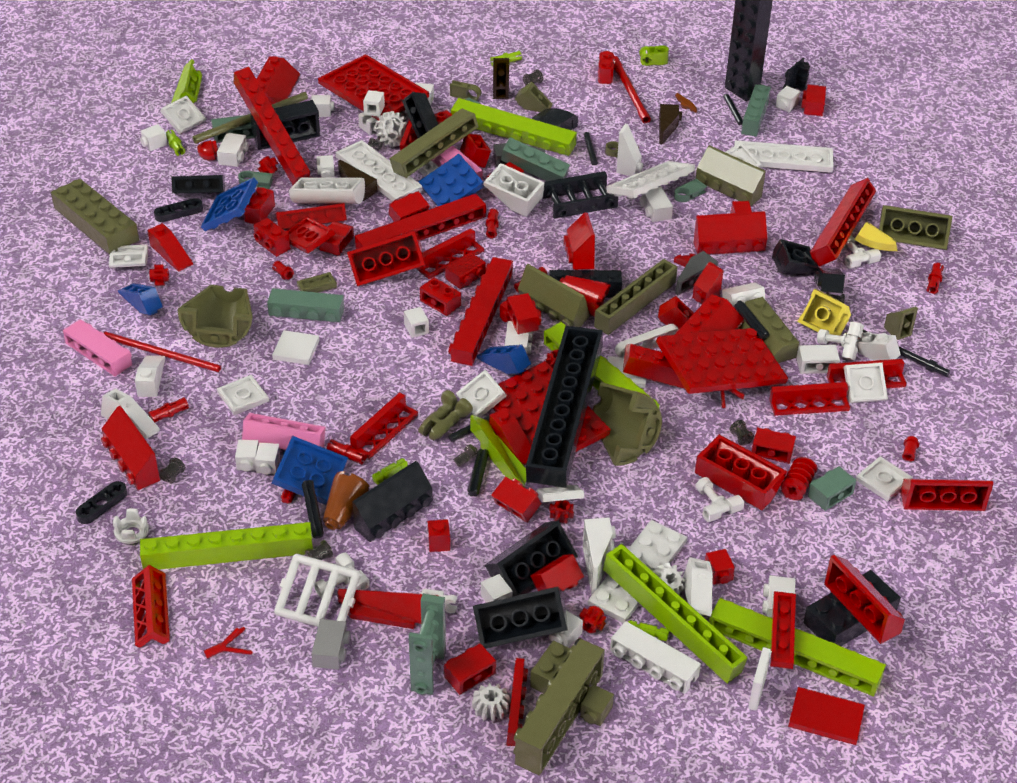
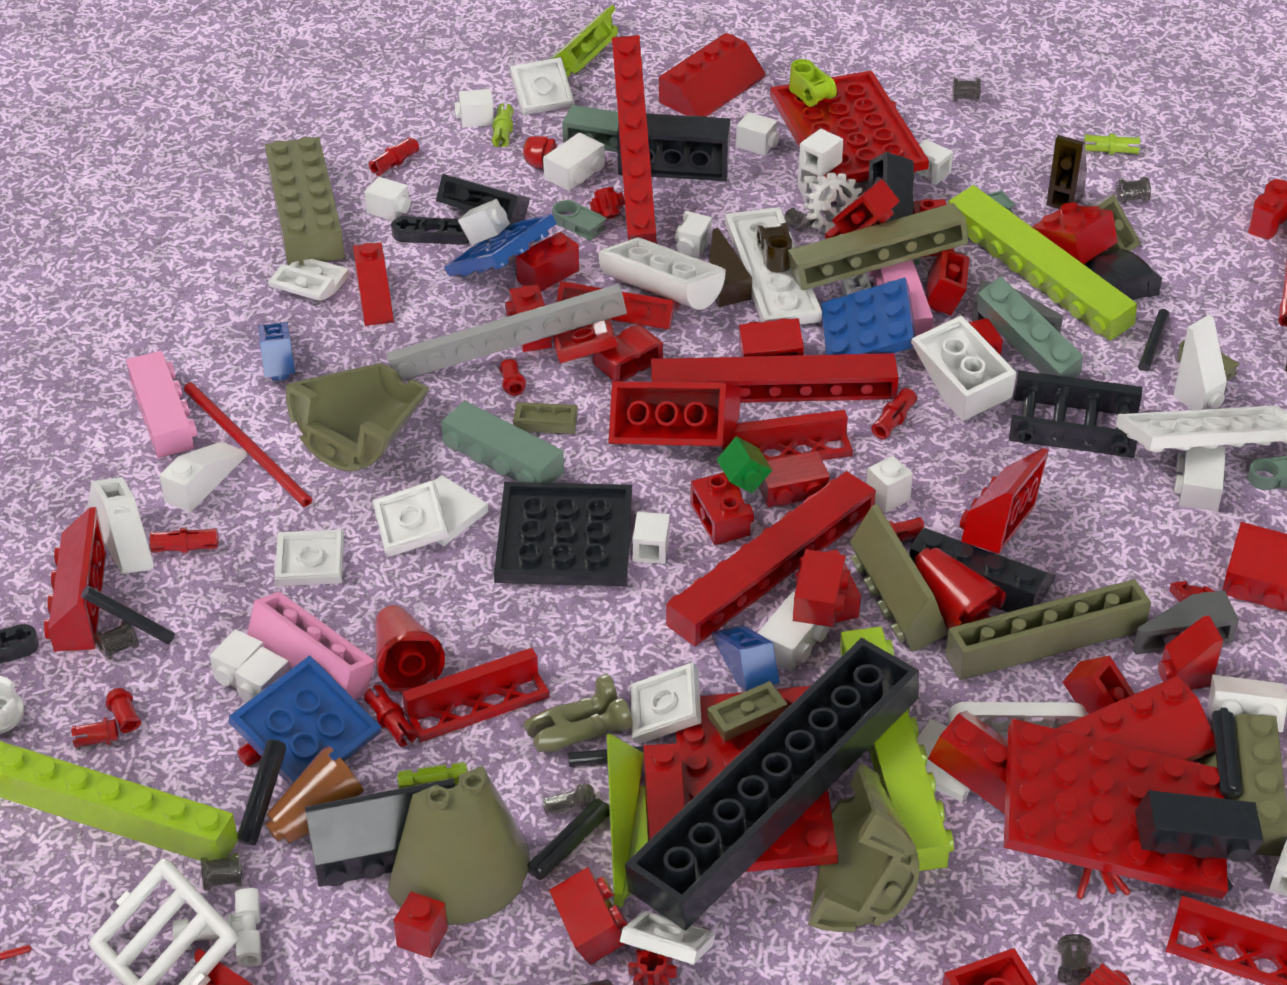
camera: 30 degrees right, 0 degrees up
(125, 177) = (394, 156): none -> red pin
(142, 201) = (387, 199): none -> white brick
(159, 275) = (326, 322): red gear -> none
(175, 453) = (127, 615): none -> black bar
(198, 517) = (97, 733): none -> red pin
(203, 501) = (120, 704): none -> red pin
(209, 195) = (484, 222): none -> white brick
(244, 119) = (611, 120): olive piece -> none
(270, 246) = (508, 332): none -> light grey plate
(285, 356) = (410, 518): none -> white tile
(336, 416) = (405, 650): none -> red cone
(341, 69) = (810, 82): none -> lime piece
(369, 336) = (564, 534): none -> black plate
(377, 159) = (774, 246): none -> dark brown piece
(414, 51) = (966, 89): none -> clear smoke bush
(418, 125) = (867, 209): none -> red brick
(437, 494) = (461, 850): none -> olive cone
(442, 270) = (744, 465): none -> green brick
(461, 90) = (999, 176): olive piece -> none
(517, 254) = (891, 483): none -> white brick
(525, 104) = (1079, 230): none -> red brick
(526, 381) = (747, 710): none -> olive plate
(764, 352) = (1198, 826): none -> black brick

